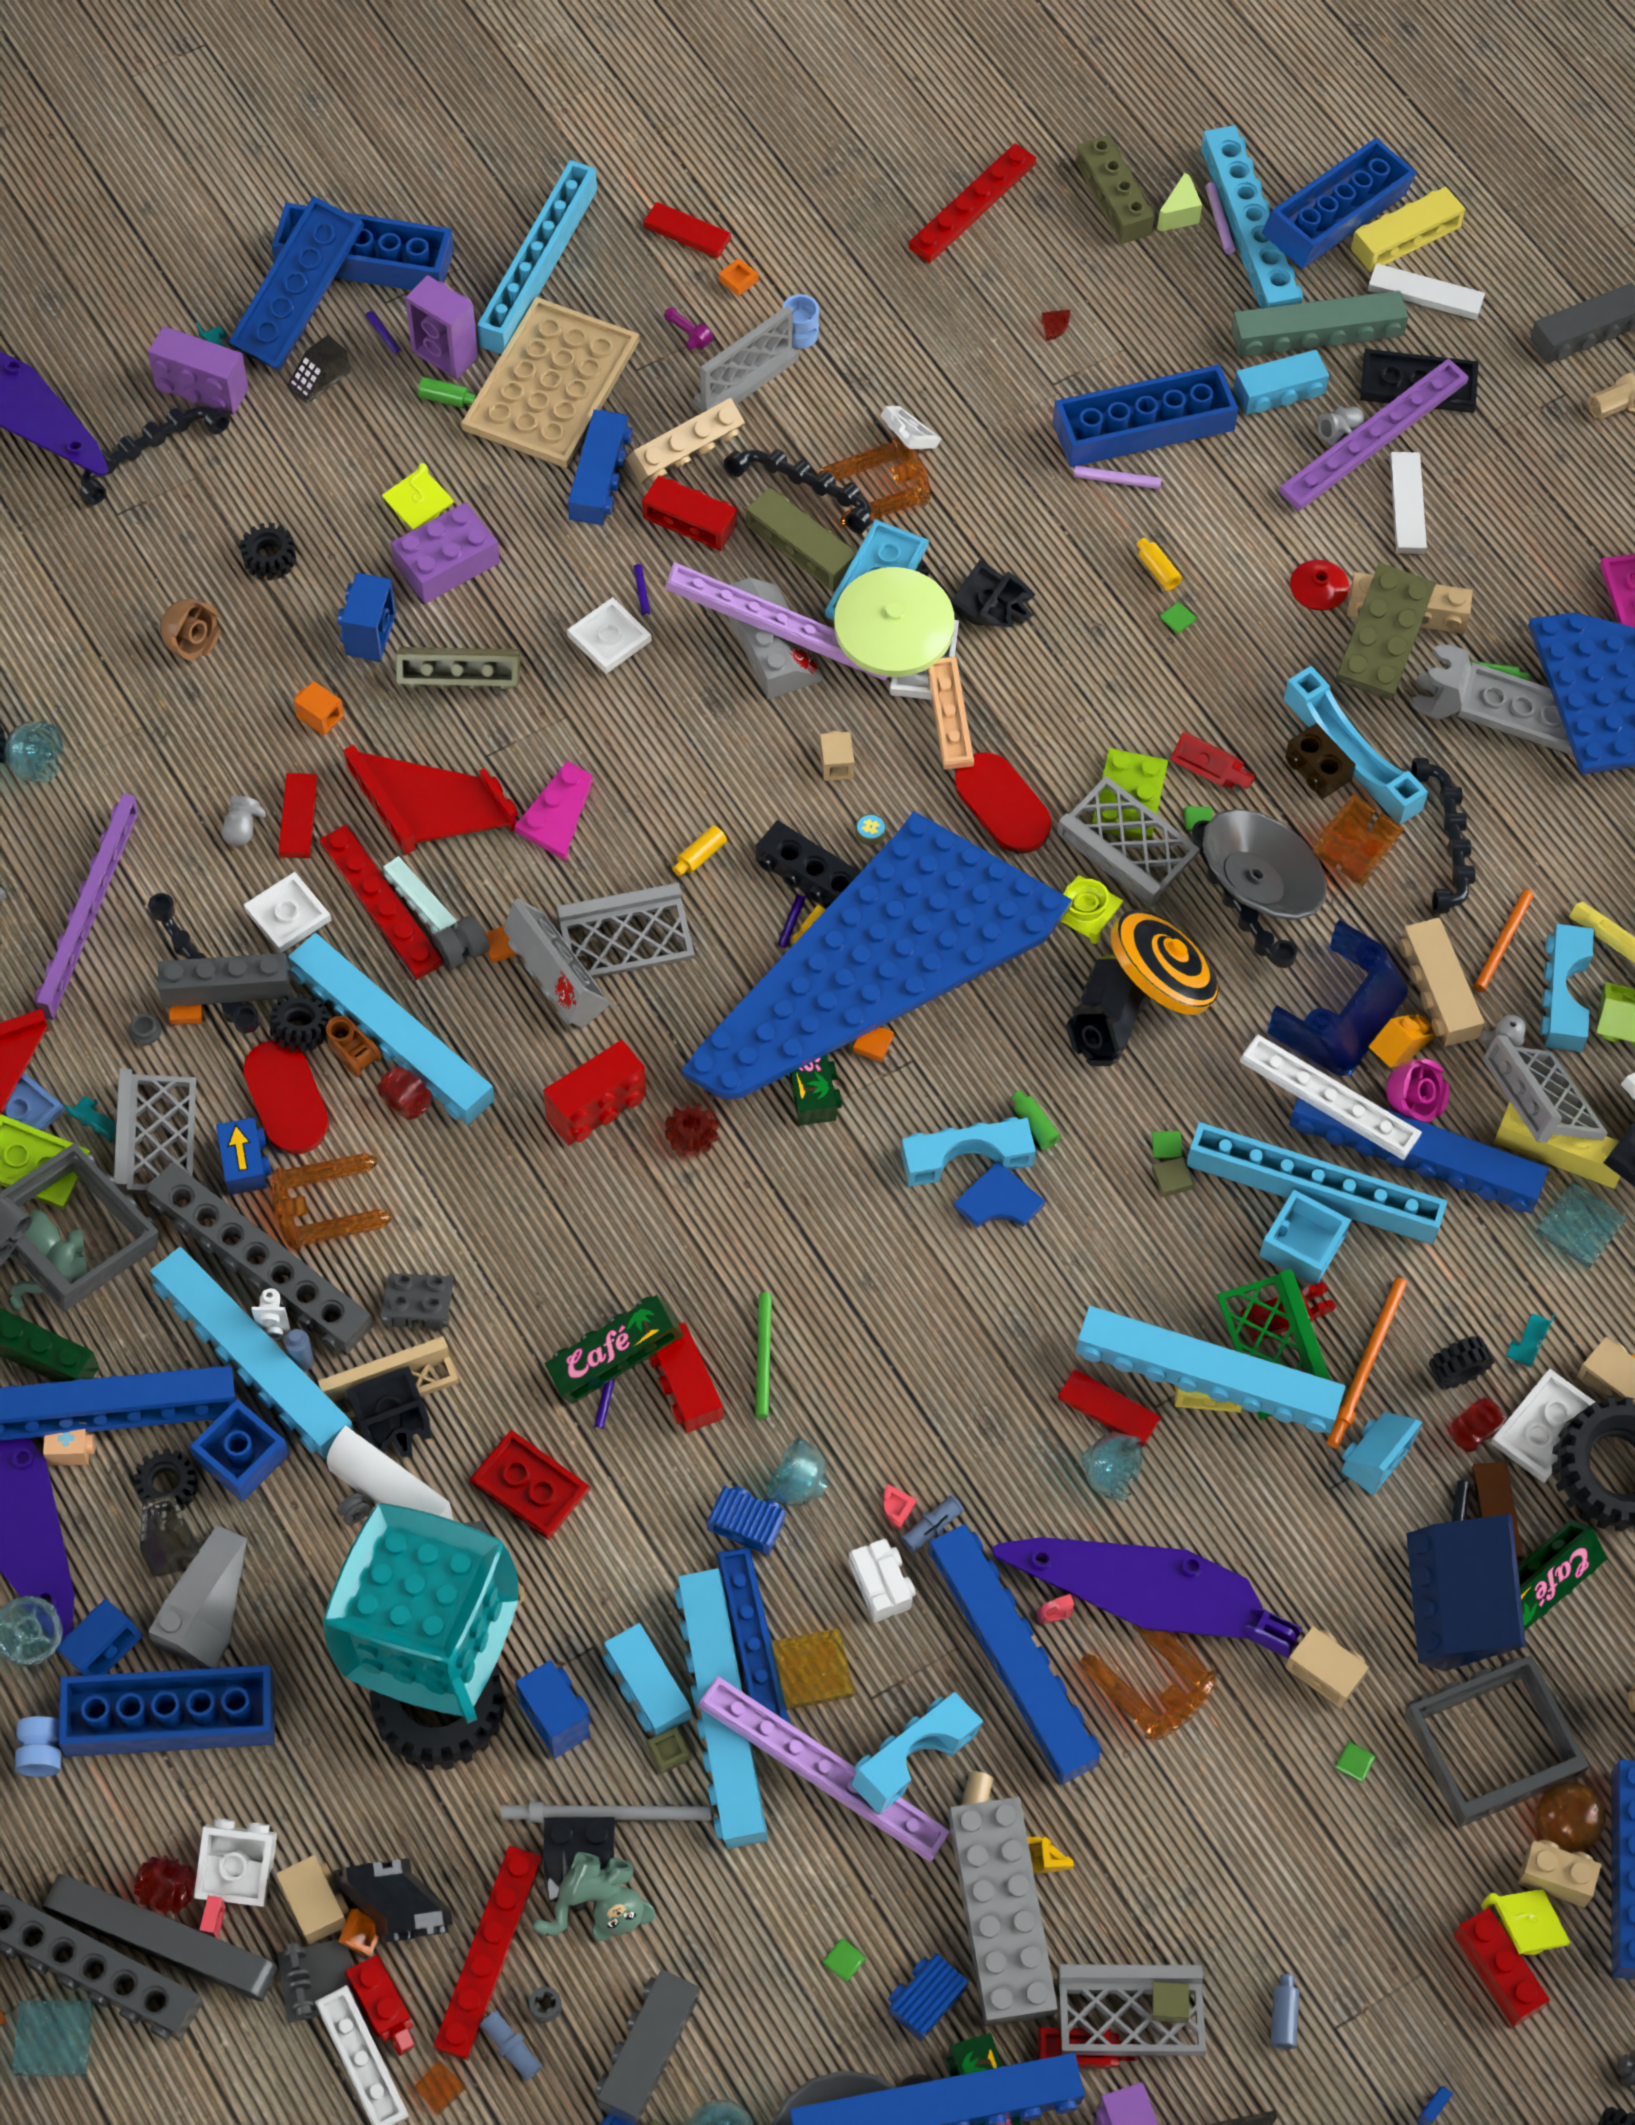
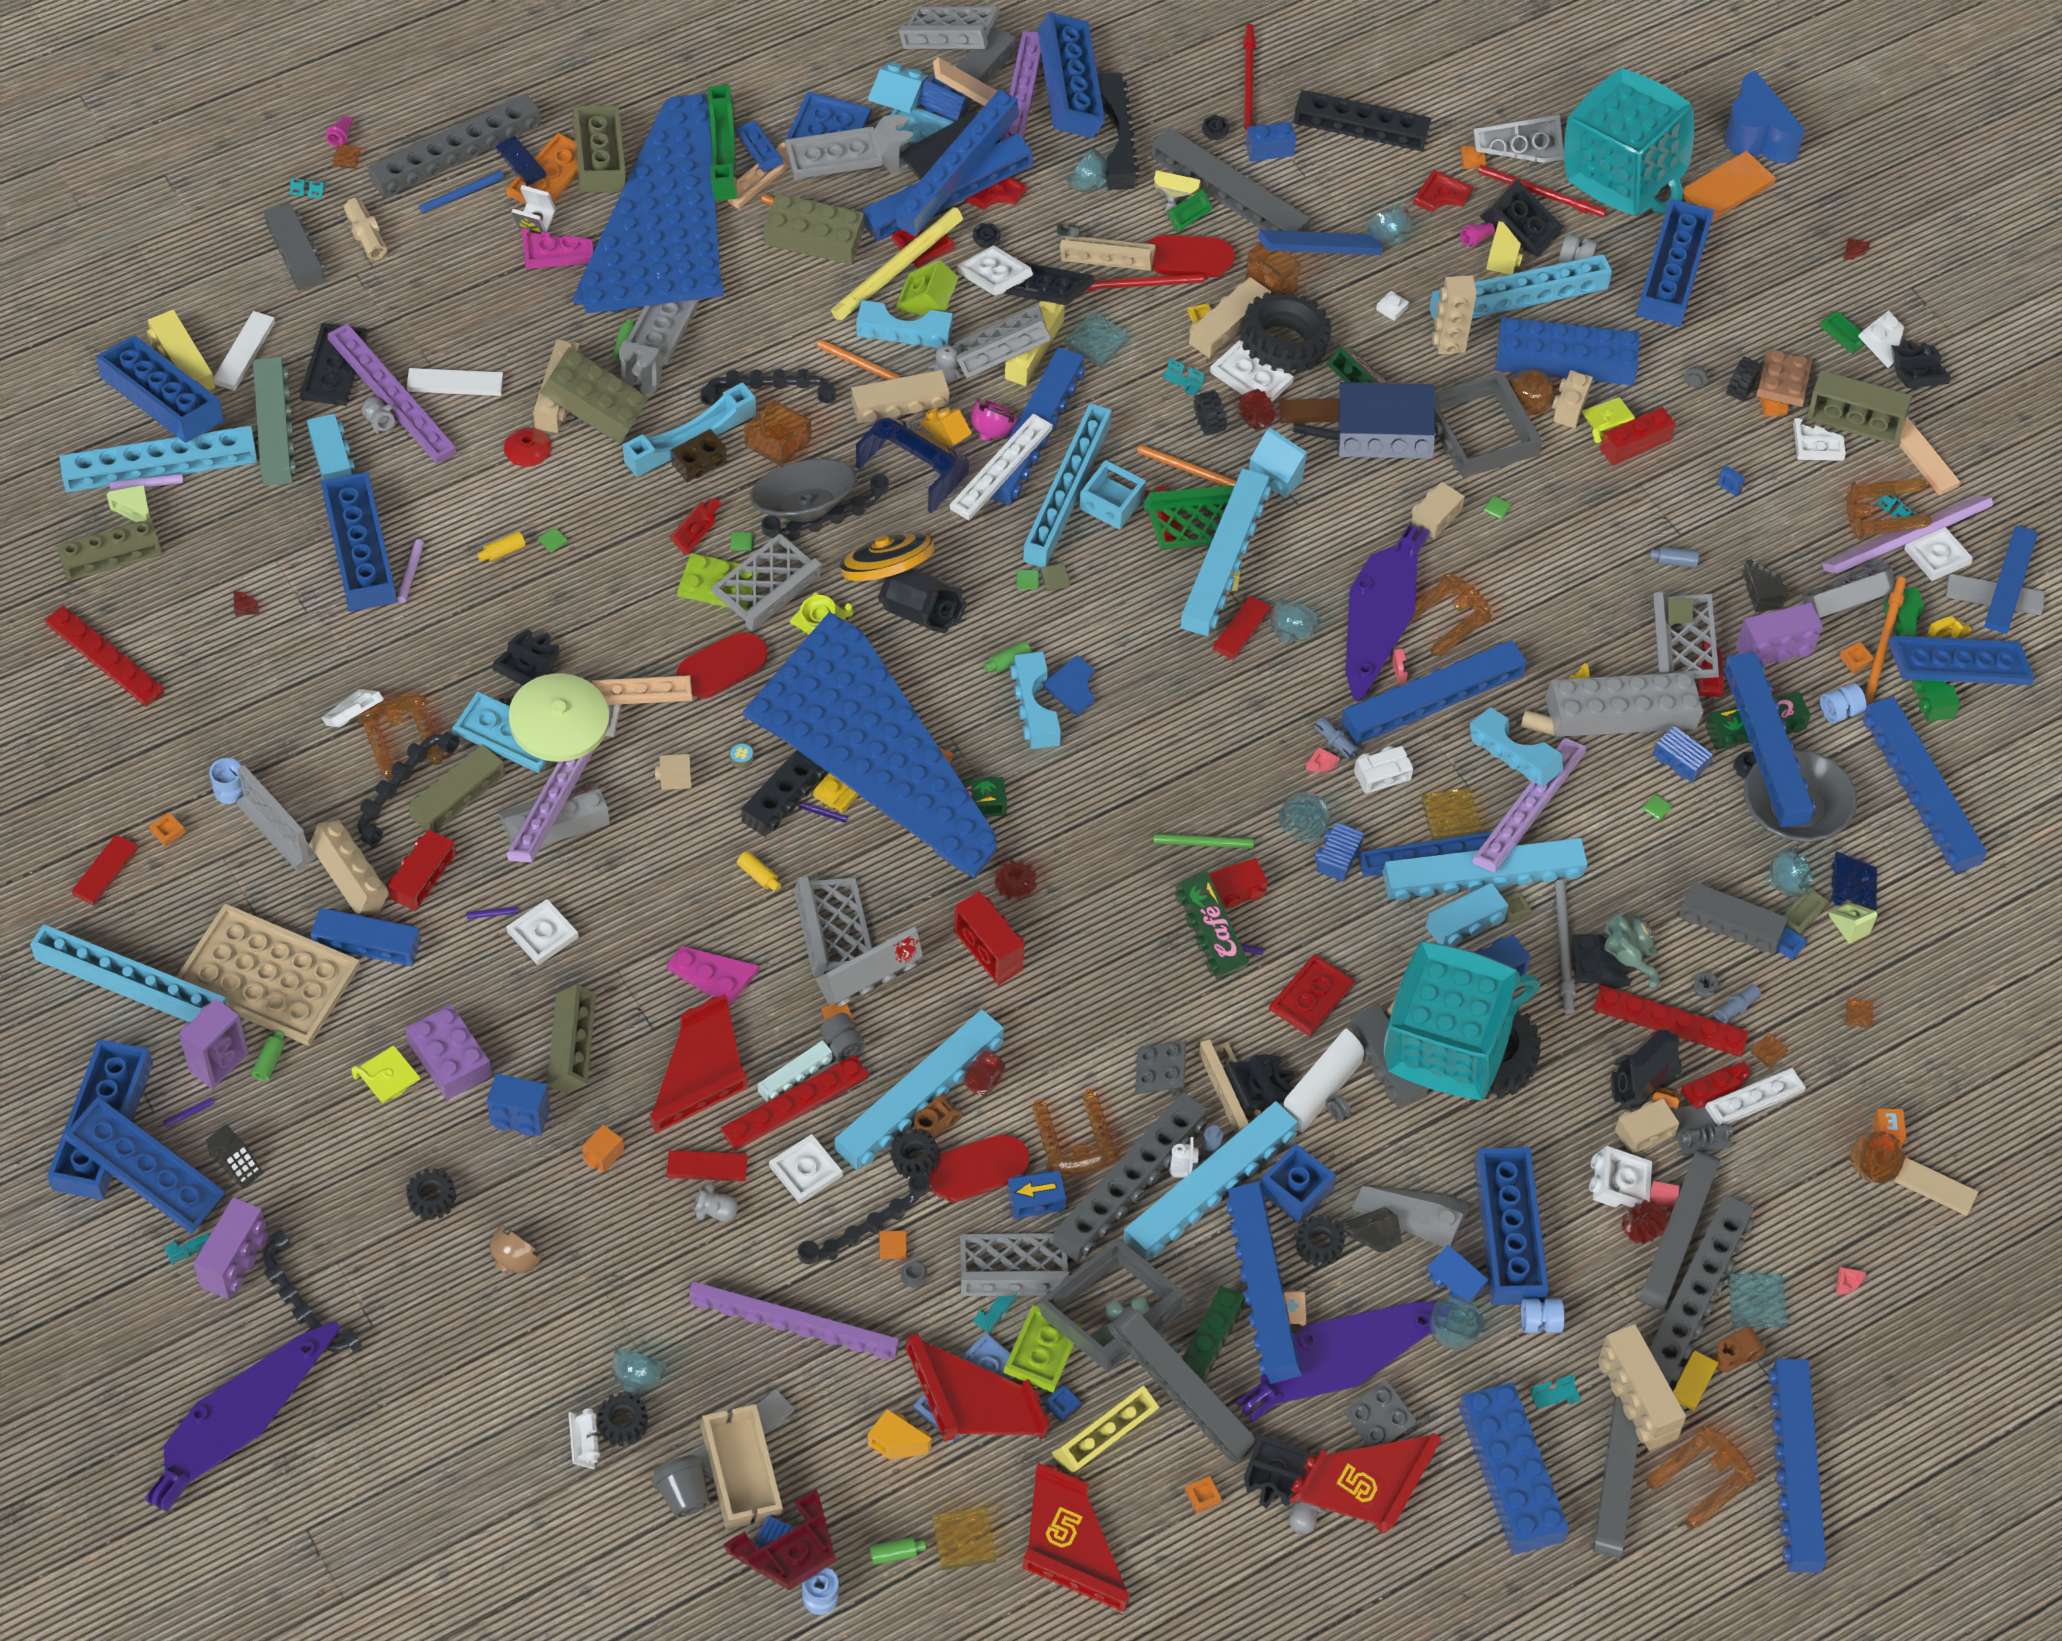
camera: 90 degrees left, 5 degrees down
(223, 979) = (881, 1202): dark grey brick -> none
(698, 335) = (228, 861): magenta piece -> none

